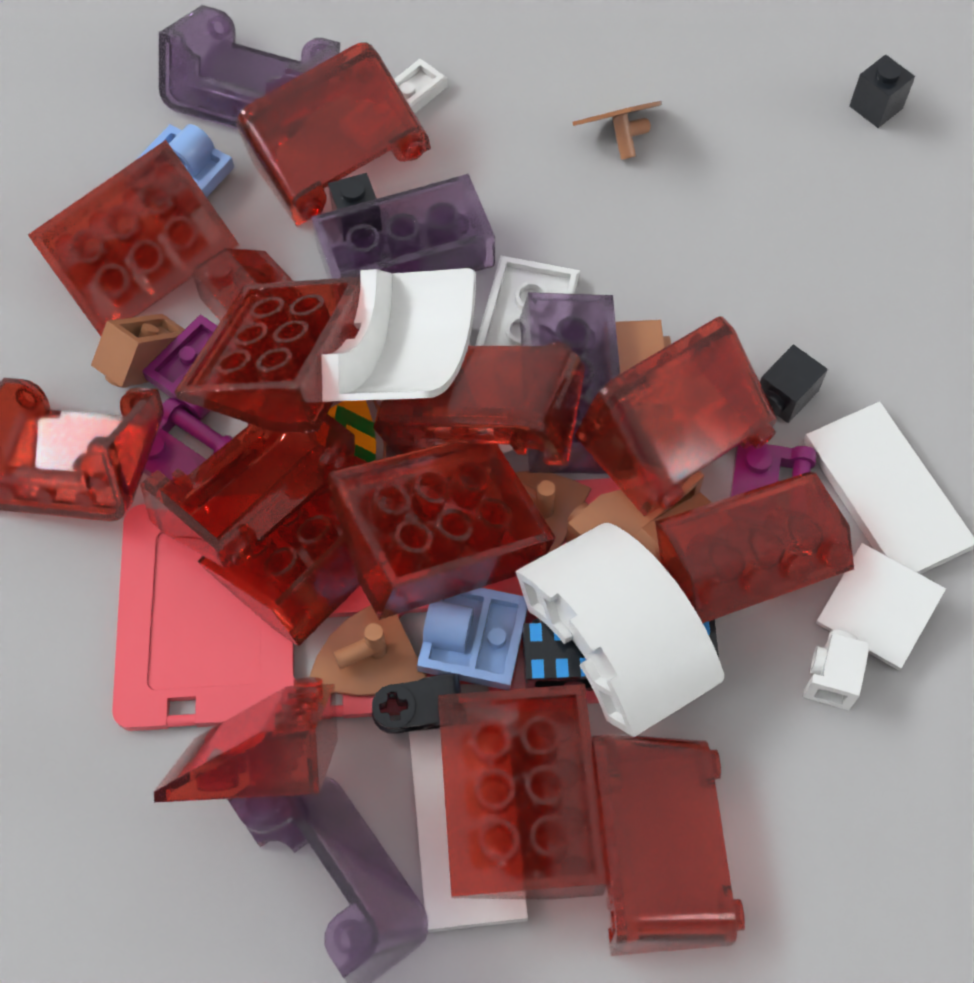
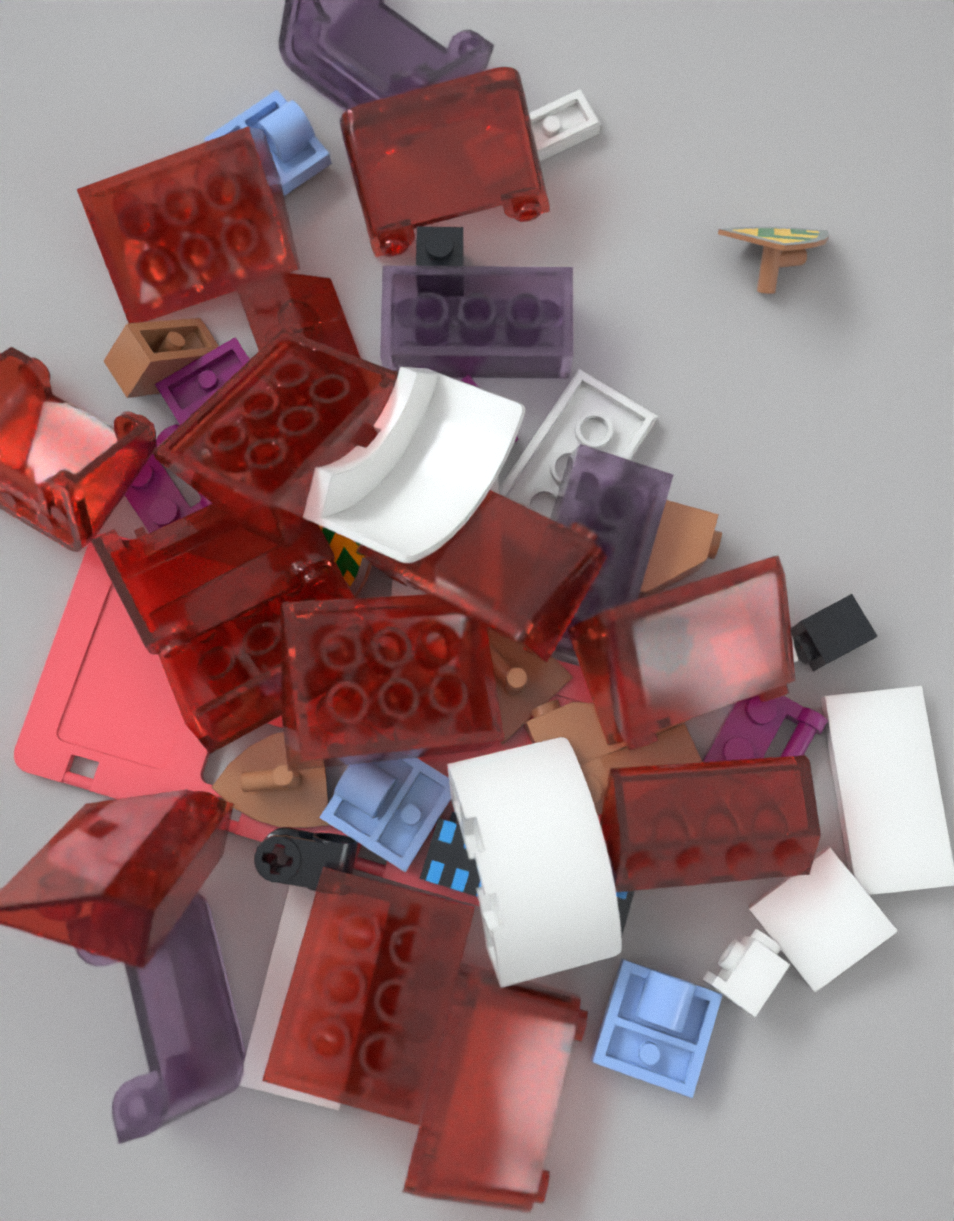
camera: 20 degrees right, 15 degrees up
(780, 743) = (656, 1028): none -> light blue plate

